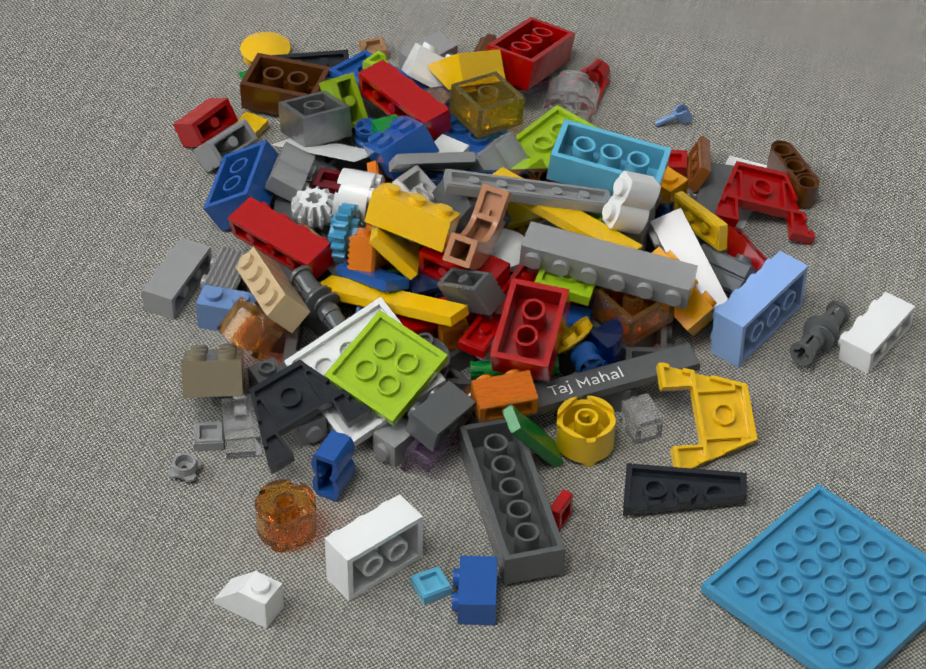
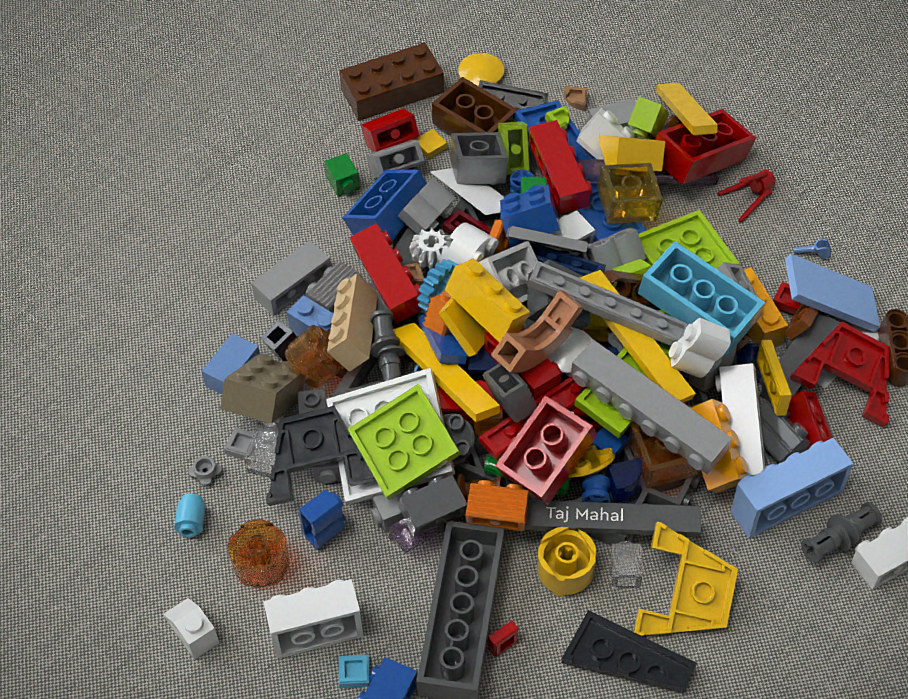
camera: 25 degrees right, 10 degrees up
(160, 371) = (229, 358): none -> medium blue brick
(176, 175) = (342, 174): none -> green brick
(180, 79) = (391, 81): none -> reddish brown brick
(193, 508) = (190, 515): none -> medium azure brick
(202, 330) = (278, 338): none -> black brick
(468, 34) = (647, 118): none -> lime brick
(498, 23) = (686, 109): none -> yellow tile
(532, 436) = (507, 555): green tile -> none
(574, 93) = (722, 204): clear brick -> none
(713, 141) = (832, 293): none -> light blue tile

